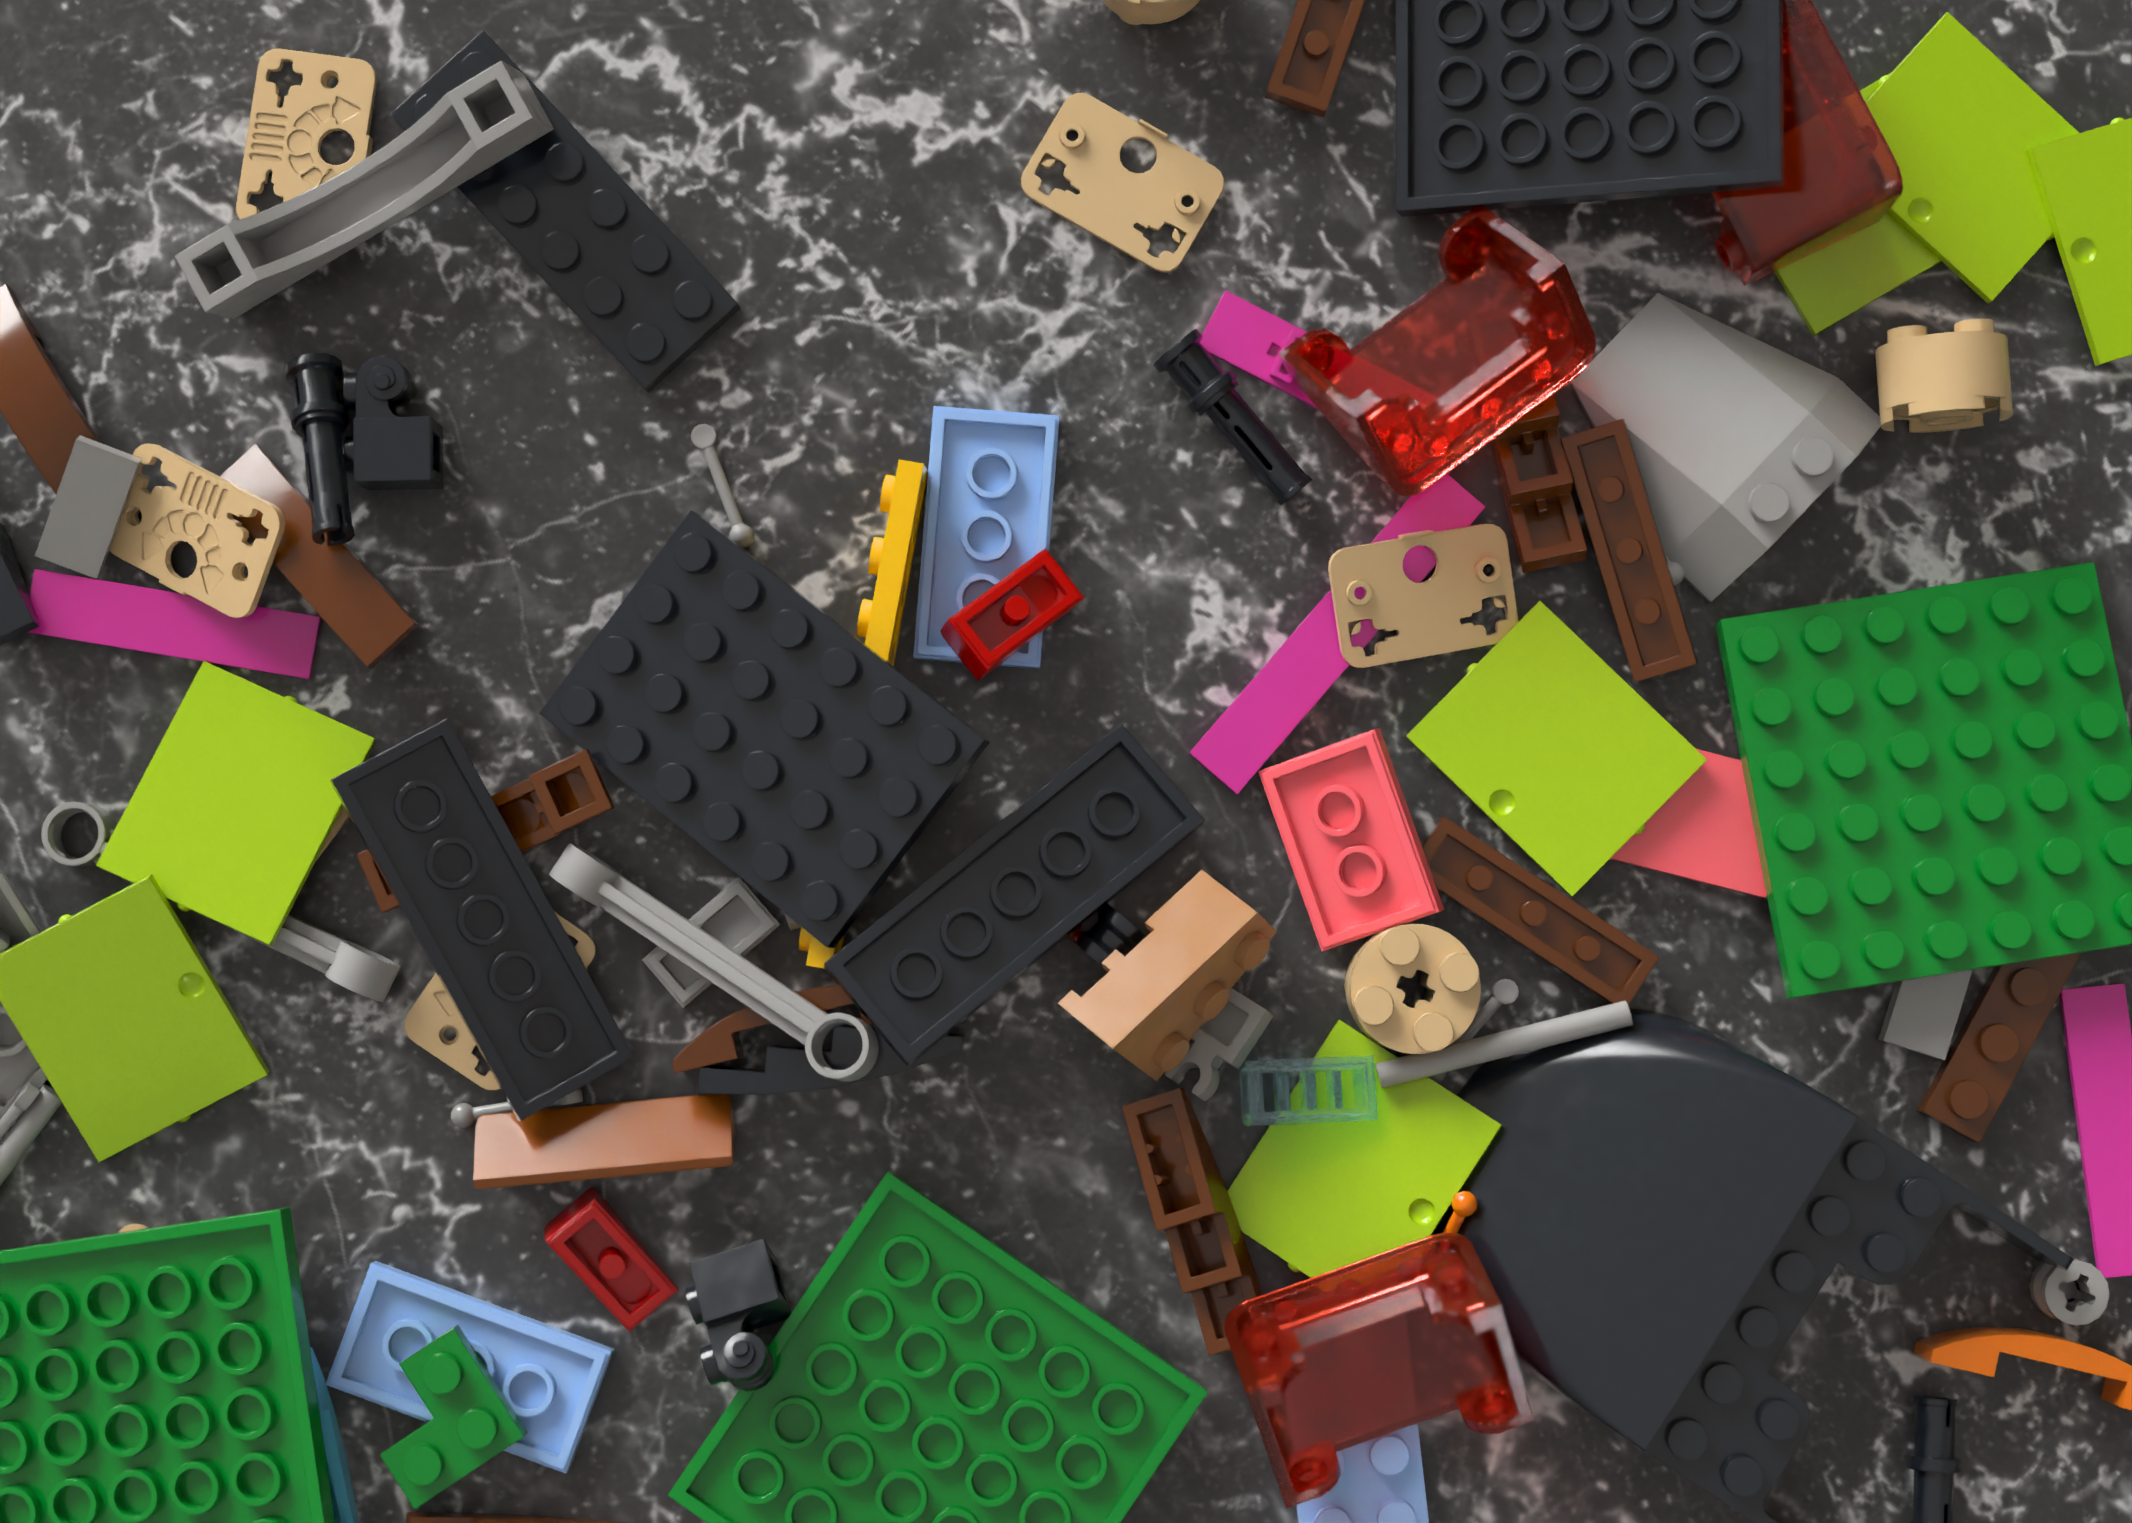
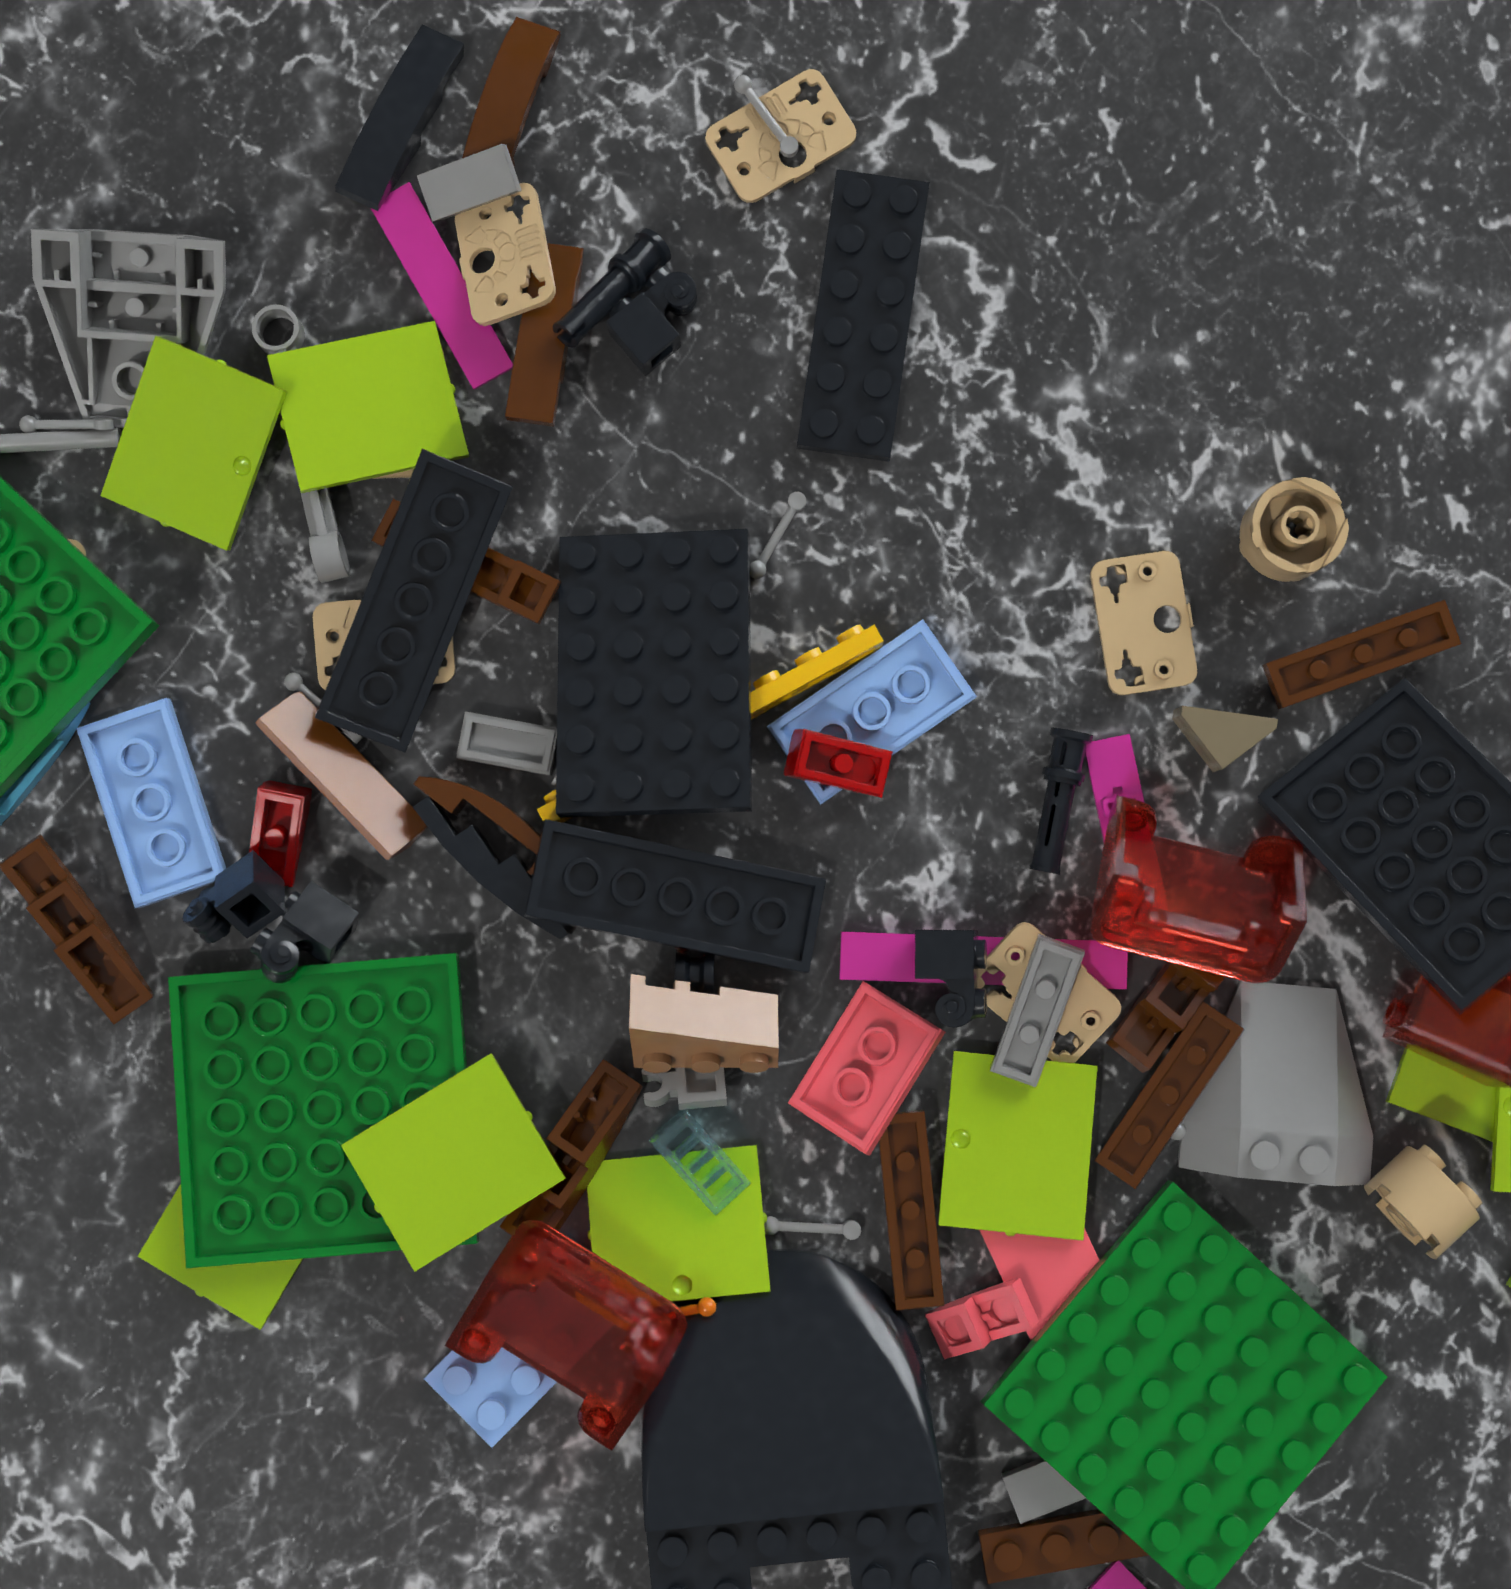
camera: 50 degrees right, 0 degrees up
(323, 142) = (788, 144): none -> light grey hinge
(443, 149) = (838, 215): light grey arch -> none
(467, 1424) = (121, 826): green plate -> none
(647, 1344) = (243, 896): none -> black brick
(712, 960) = (489, 659): light grey piece -> none
(1103, 1348) = (453, 1162): none -> lime piece
(1303, 197) = (1221, 735): none -> dark tan slope
(1312, 657) = (955, 960): none -> black brick
(1433, 615) = (1037, 1010): none -> light grey tile
(1445, 972) = (832, 1188): tan brick -> none
(1504, 1044) = (819, 1254): light grey bar -> none
(1703, 929) = (981, 1318): none -> coral slope

